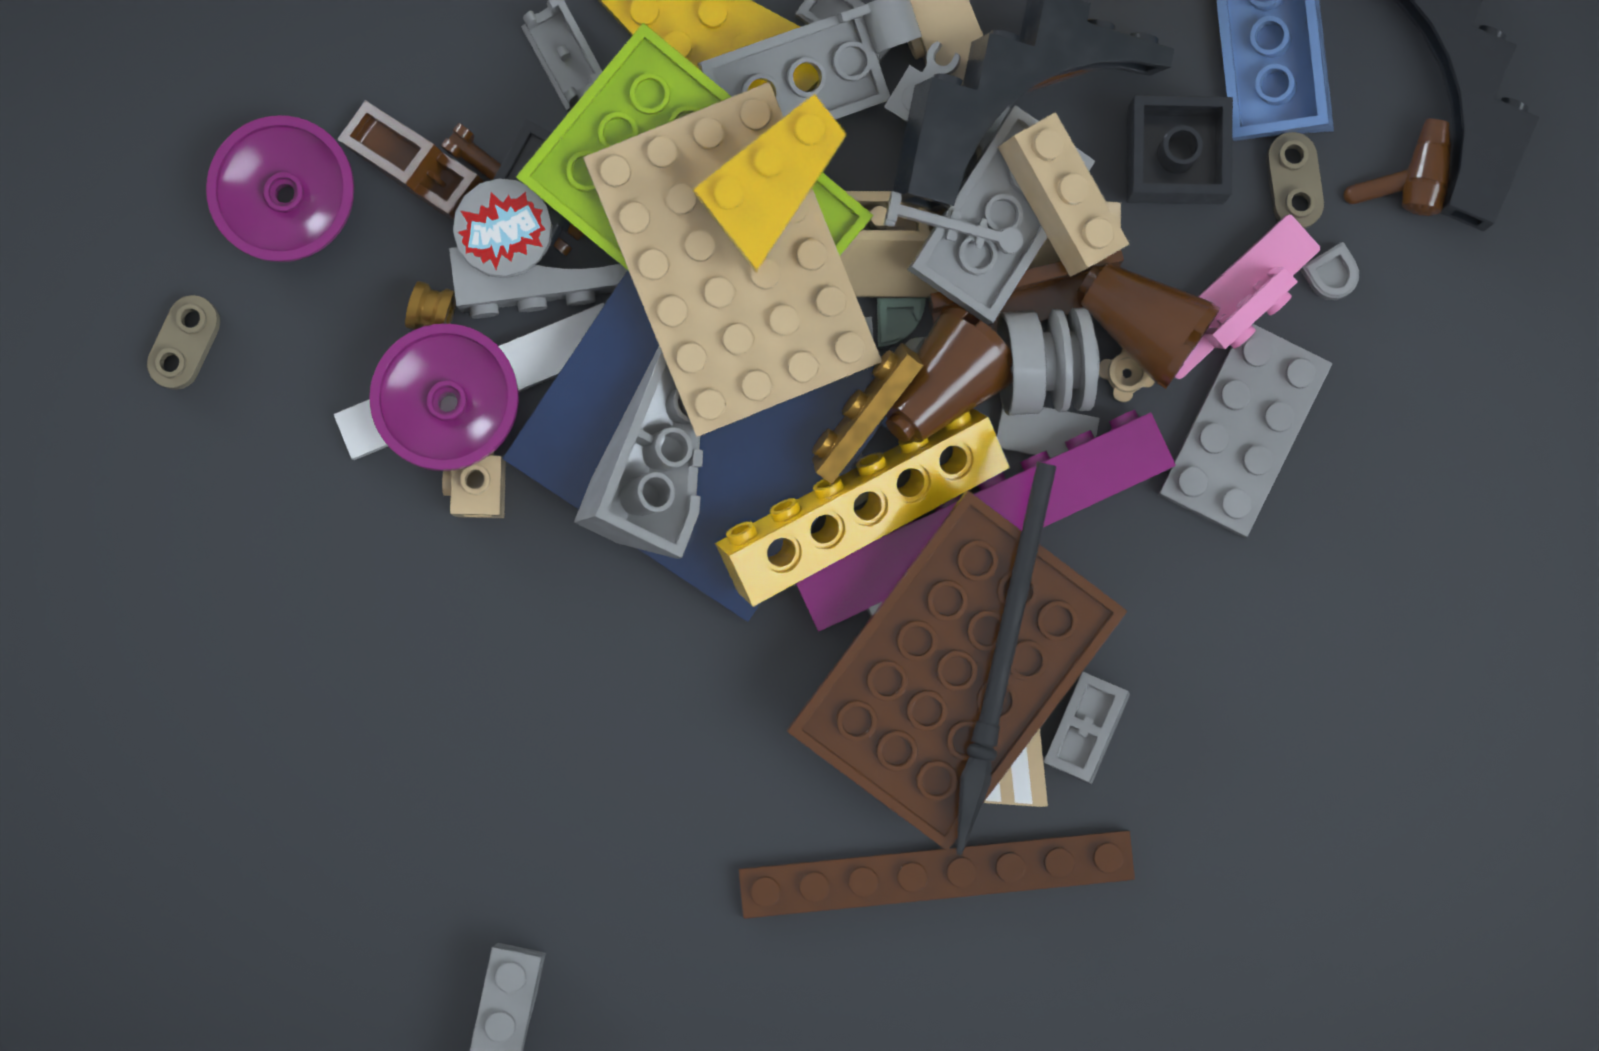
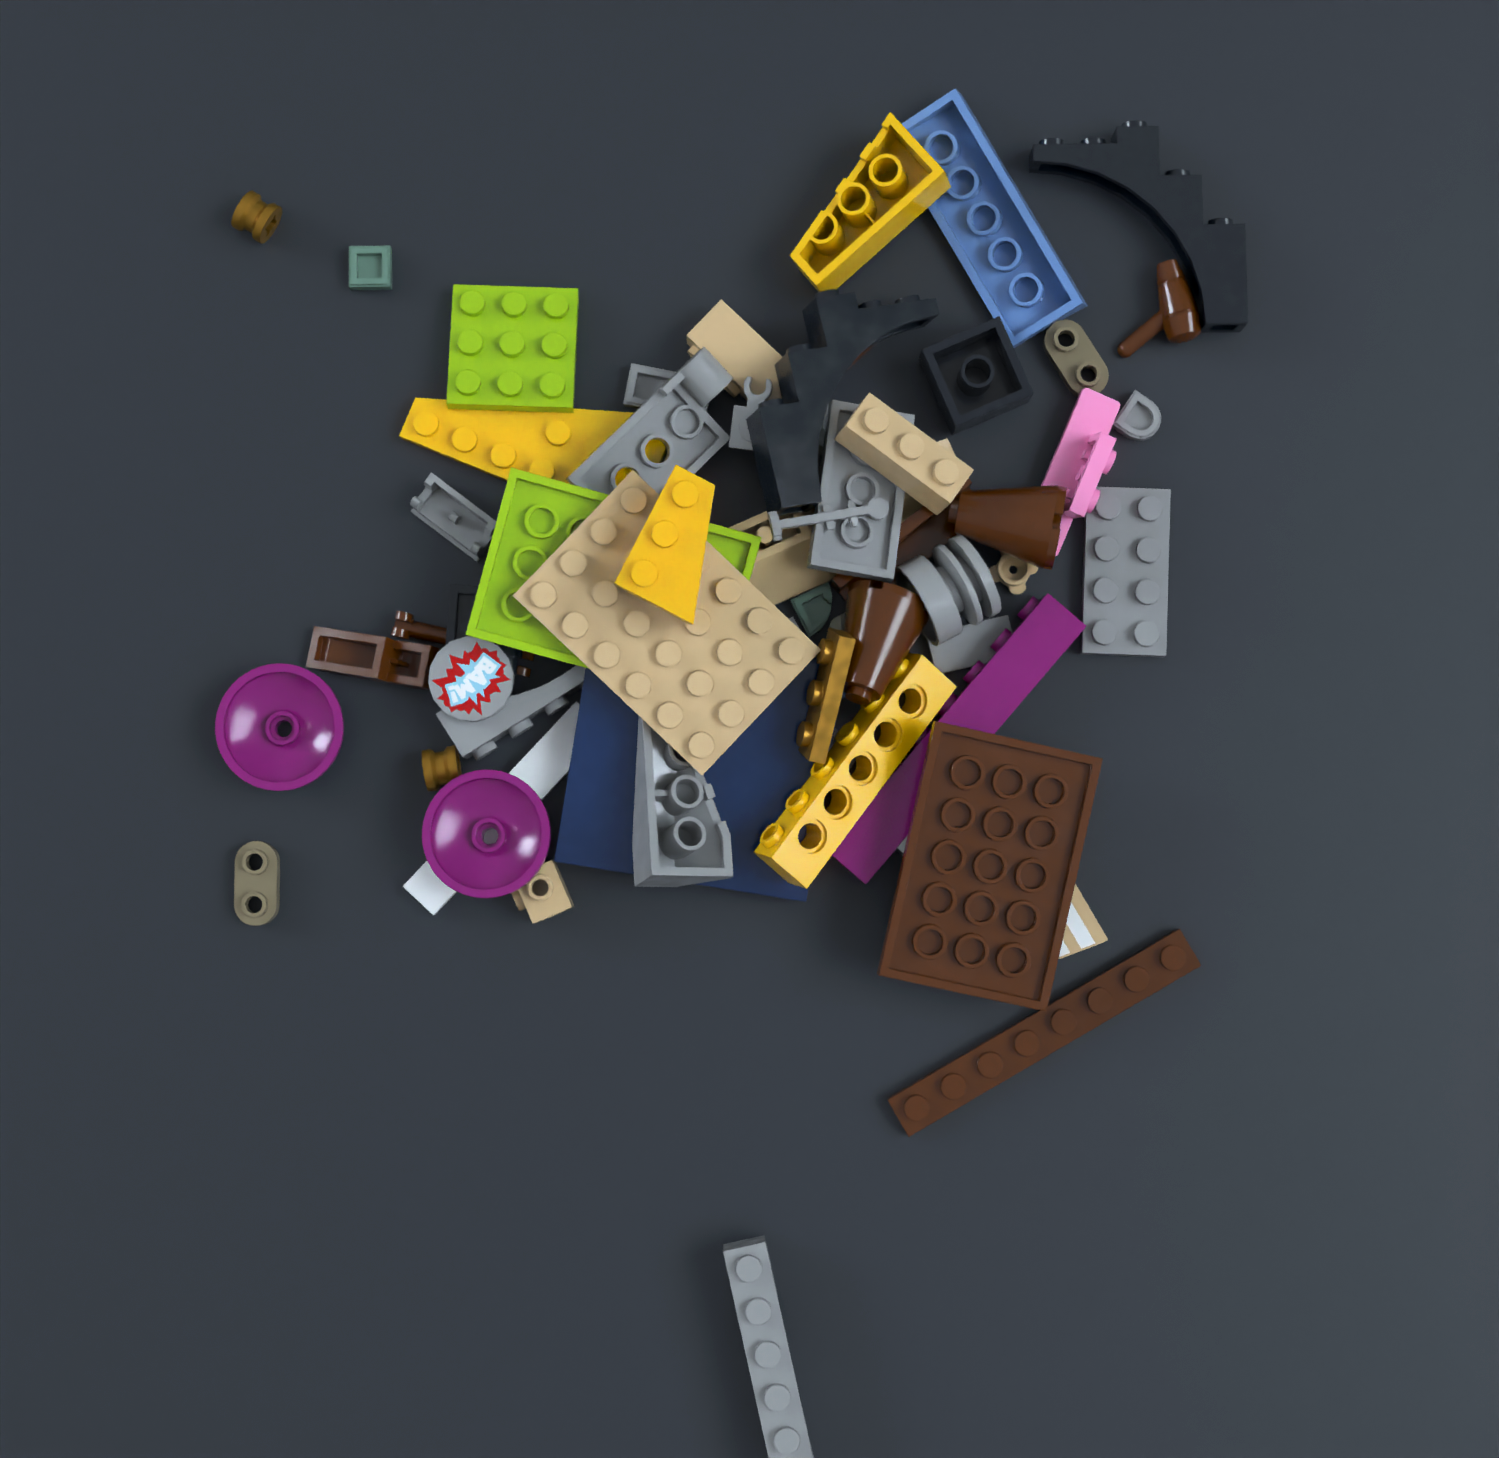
camera: 25 degrees left, 0 degrees up
(977, 773) = (1043, 940): black piece -> none
(1087, 727) = (1109, 863): light grey hinge -> none

